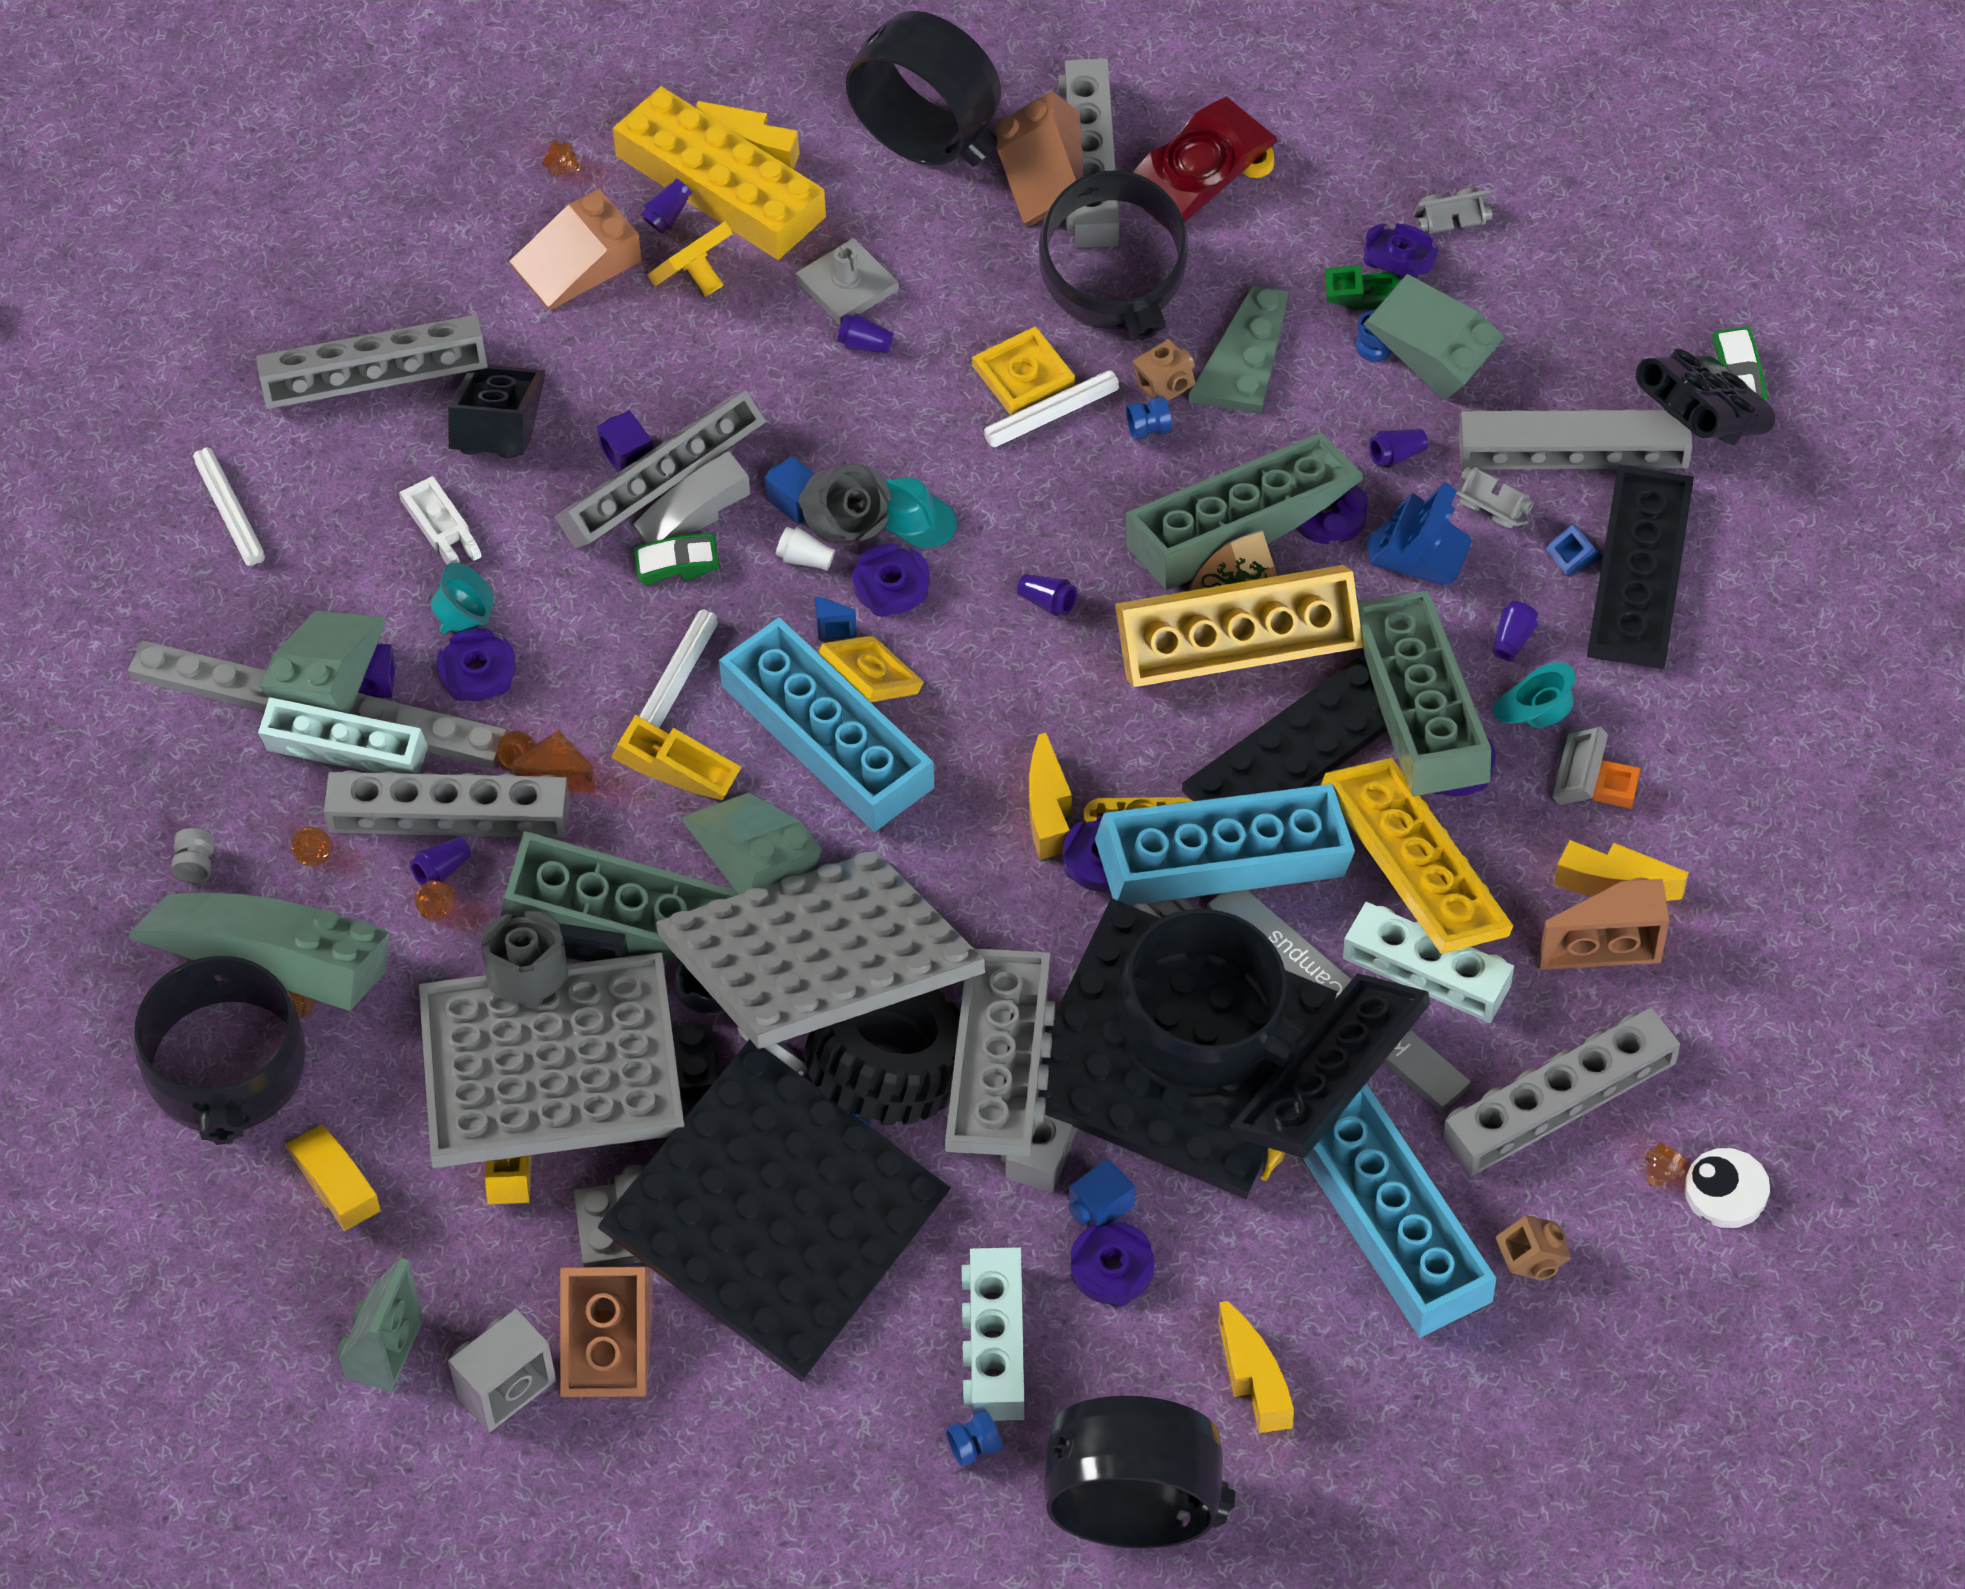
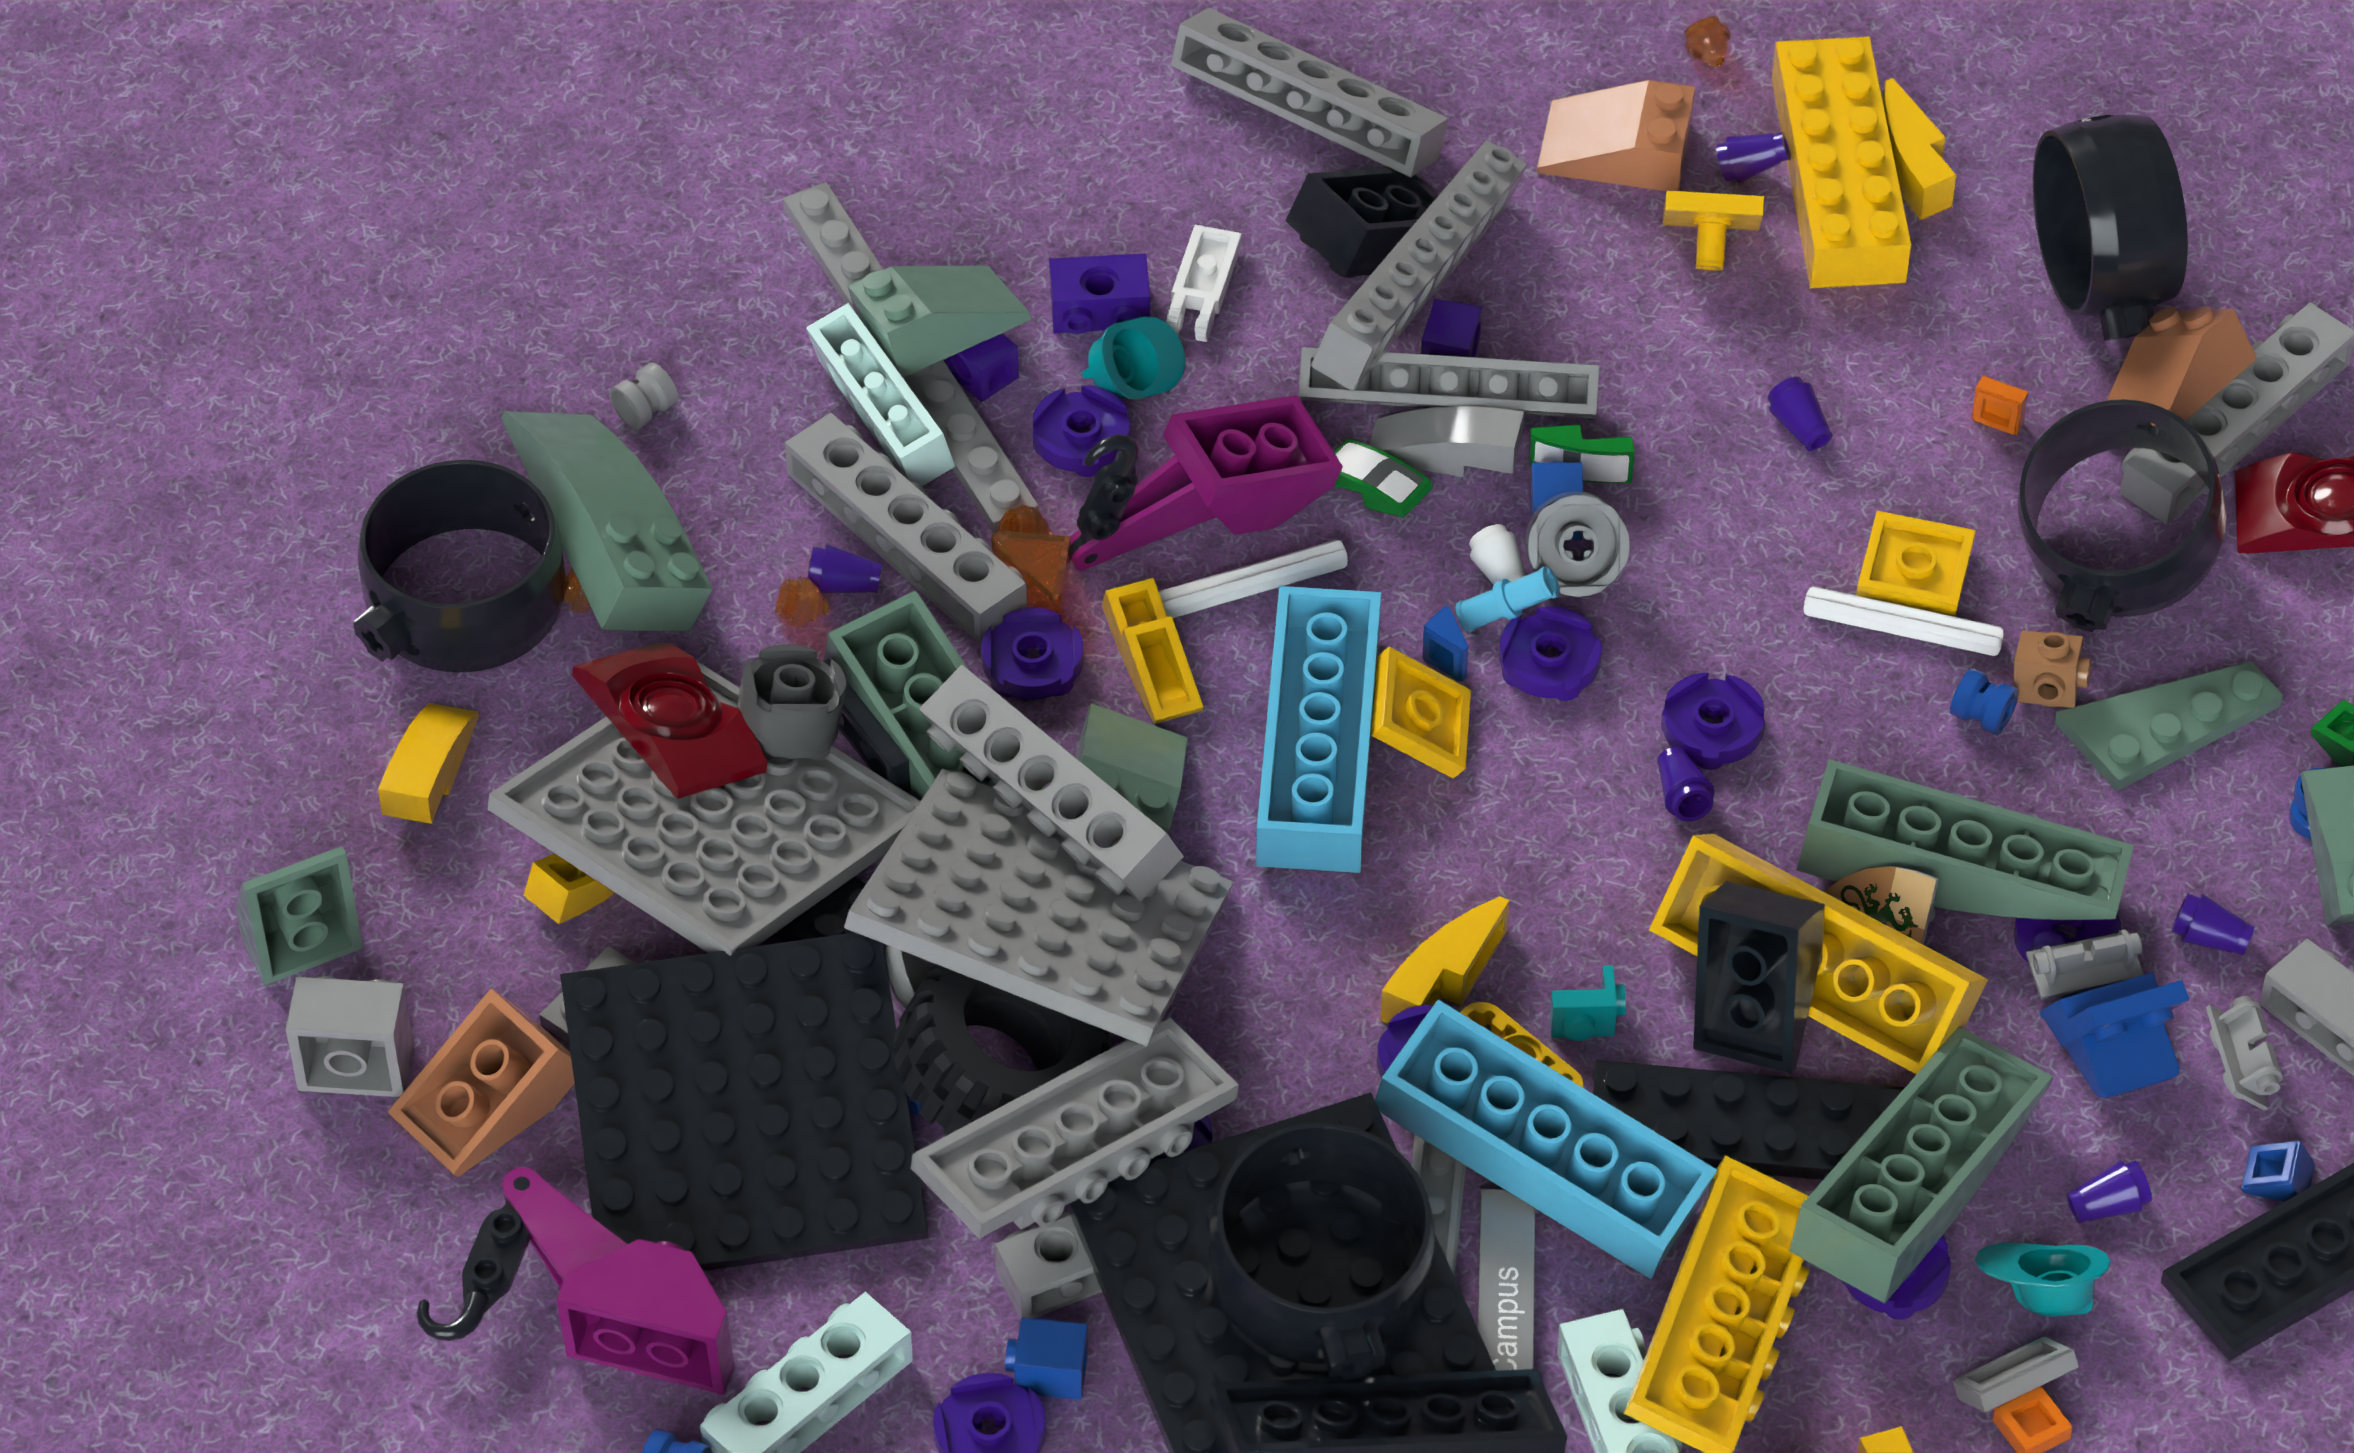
camera: 45 degrees right, 5 degrees down
(229, 507) = (1039, 126): white axle -> none
(311, 846) = (752, 469): clear orange plate -> none
(392, 576) = (1098, 291): none -> dark purple brick
(462, 1024) = (673, 718): none -> dark red slope
(579, 411) = (1418, 265): none -> light grey brick
(605, 604) = (1231, 462): none -> magenta slope
(614, 836) = (1032, 678): none -> dark purple plate
(641, 866) = (1144, 850): none -> light grey brick
(768, 453) = (1601, 459): none -> slope
(841, 565) = (1507, 599): none -> medium azure pin
(847, 281) = (1850, 353): light grey tile -> none
(853, 1376) = (617, 1302): none -> magenta slope
(918, 515) = (1650, 613): teal piece -> none
(964, 246) = (1999, 405): none -> orange tile
(1015, 562) = (1713, 743): none -> dark purple plate
(1151, 760) = (1588, 1012): none -> teal bracket
(1229, 661) = (1756, 974): none -> black slope
(1368, 516) = (2085, 964): none -> light grey hinge

